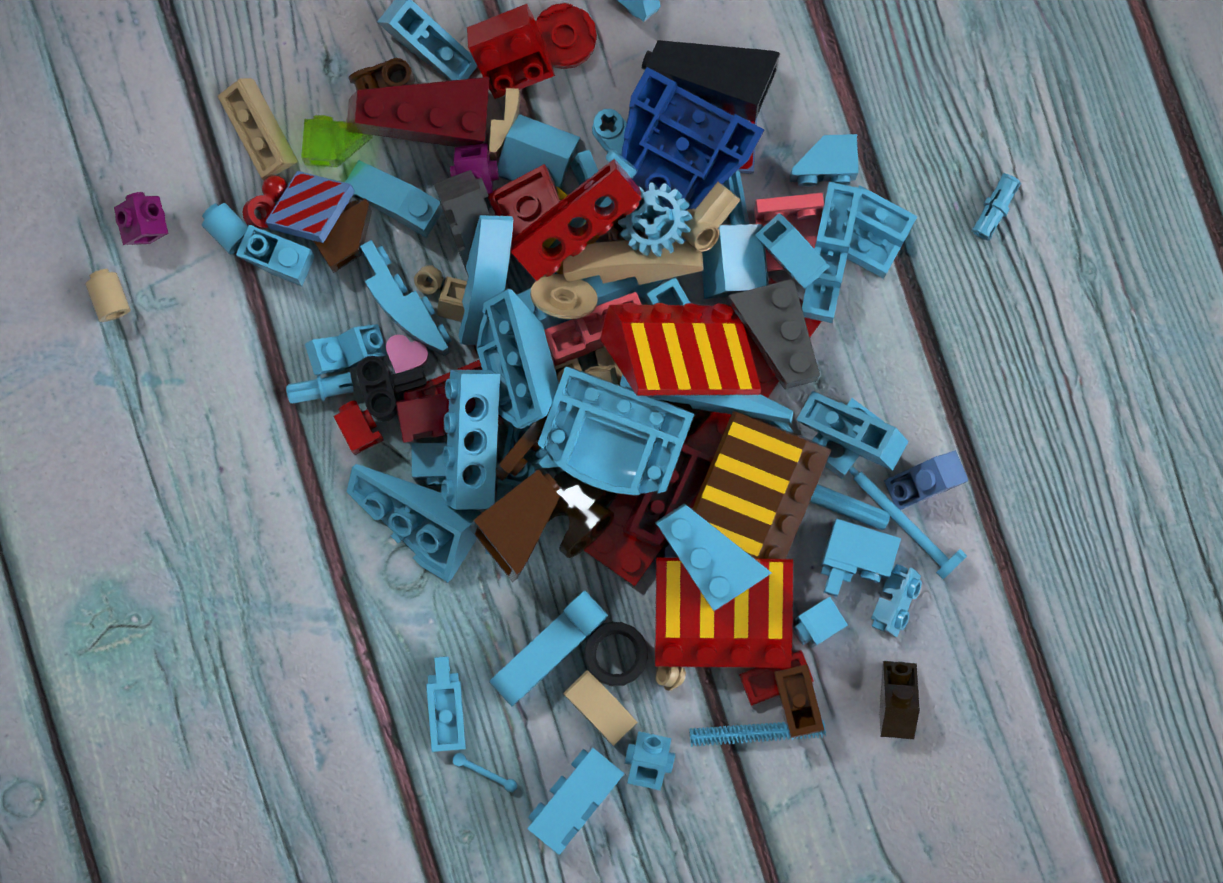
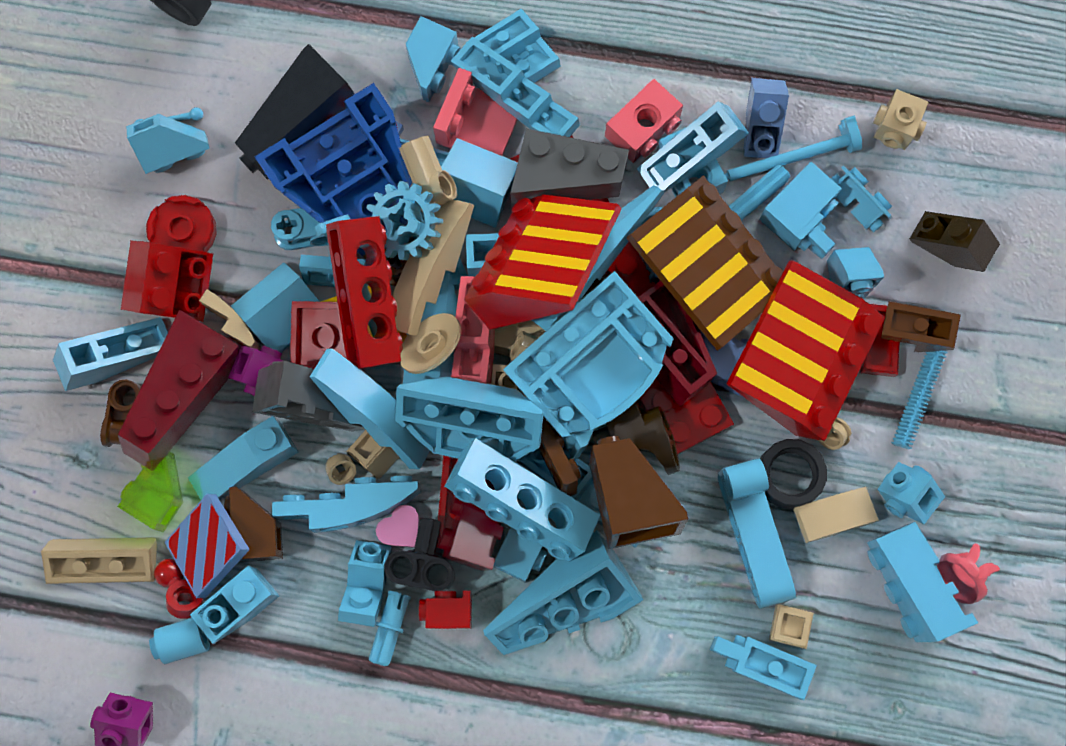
camera: 60 degrees left, 5 degrees down
(460, 760) = (821, 676): medium azure hinge -> none
(488, 715) = (791, 626): none -> tan tile
(603, 838) = (966, 575): none -> coral piece
(710, 558) = (758, 329): medium azure wedge -> none
(792, 250) = (498, 119): medium azure slope -> none
(886, 376) = (651, 104): none -> coral brick
(995, 595) = (900, 120): none -> tan brick

